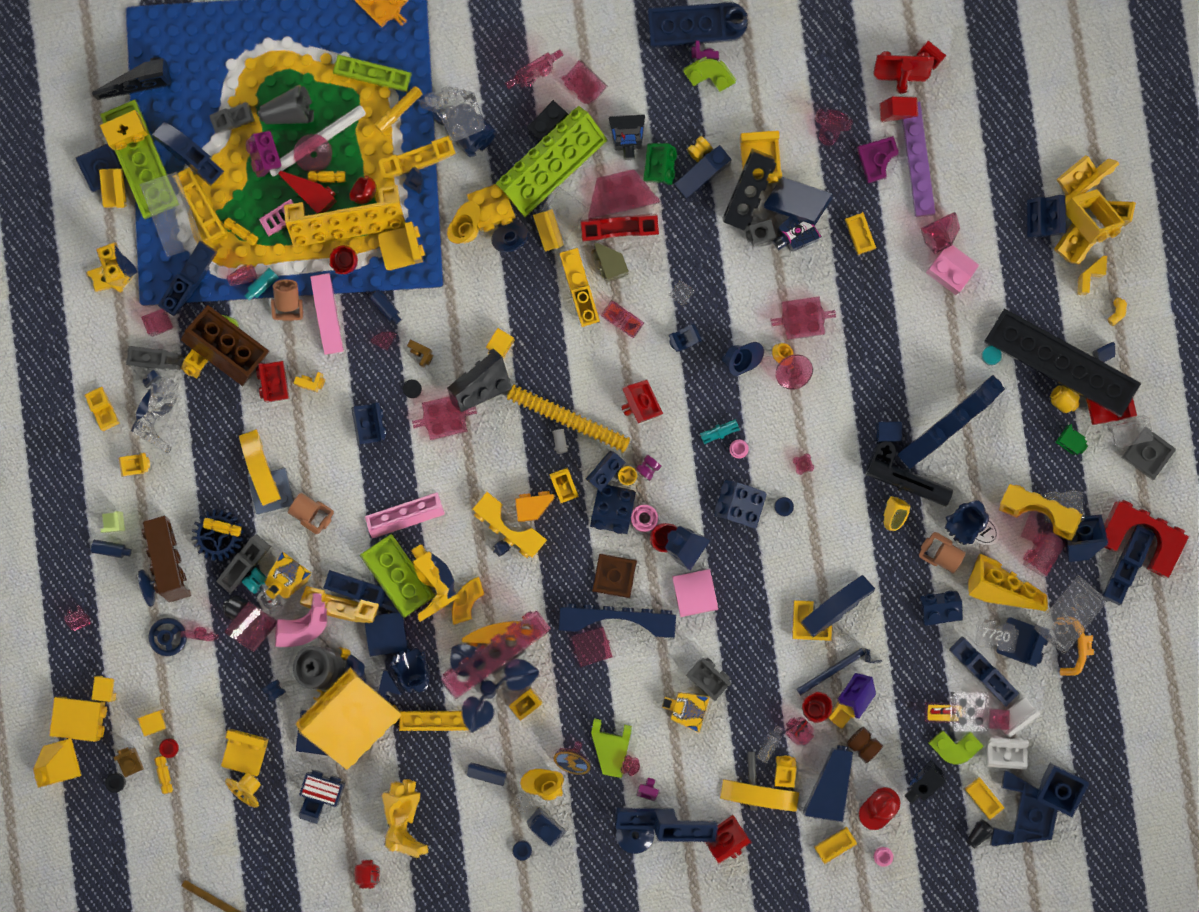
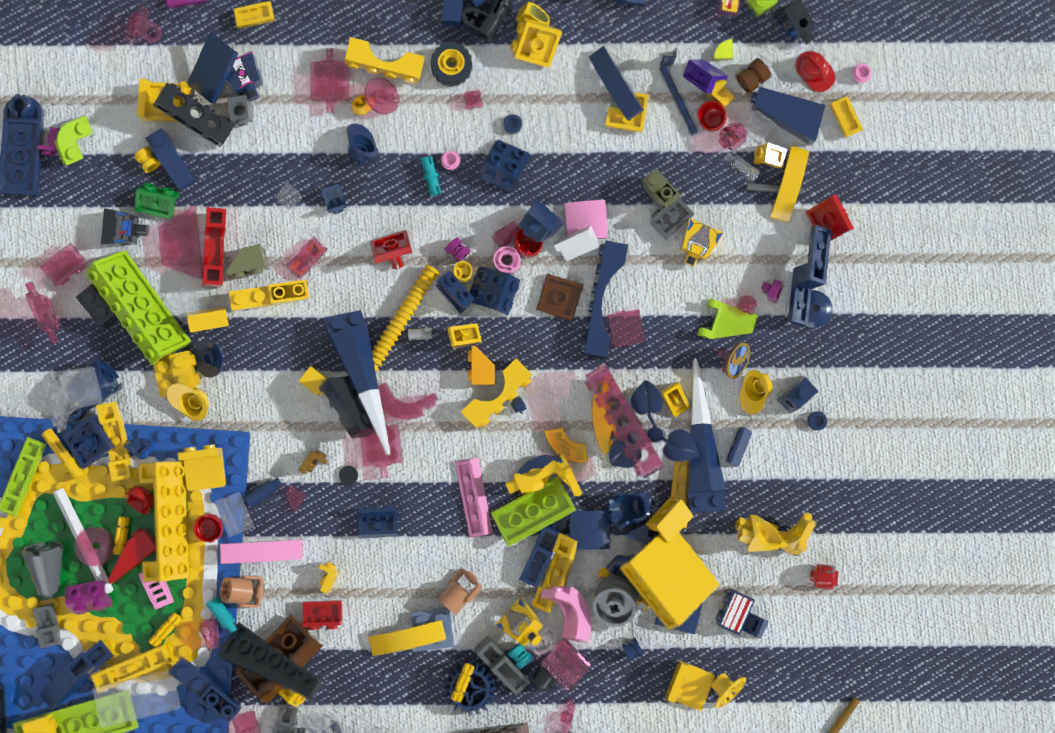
camera: 90 degrees left, 0 degrees up
(223, 327) = (260, 658): none -> black wing
(359, 283) = (234, 514): none -> clear panel
(405, 712) = (670, 518): none -> yellow panel
(409, 127) = (84, 446): none -> dark blue plate
(453, 742) = (704, 479): none -> dark blue plate
(485, 421) = (401, 410): none -> clear pink arch
(539, 376) = (352, 344): none -> dark blue plate
(669, 513) = (505, 235): none -> clear pink cone
(670, 586) = (577, 243): none -> white panel
(734, 663) = (660, 189): none -> olive slope
(830, 345) = (360, 56): none -> yellow arch
(847, 434) = (451, 53): none -> black wheel
(868, 519) = (535, 42): none -> yellow plate
(887, 712) = (724, 51): none -> neon yellow tile

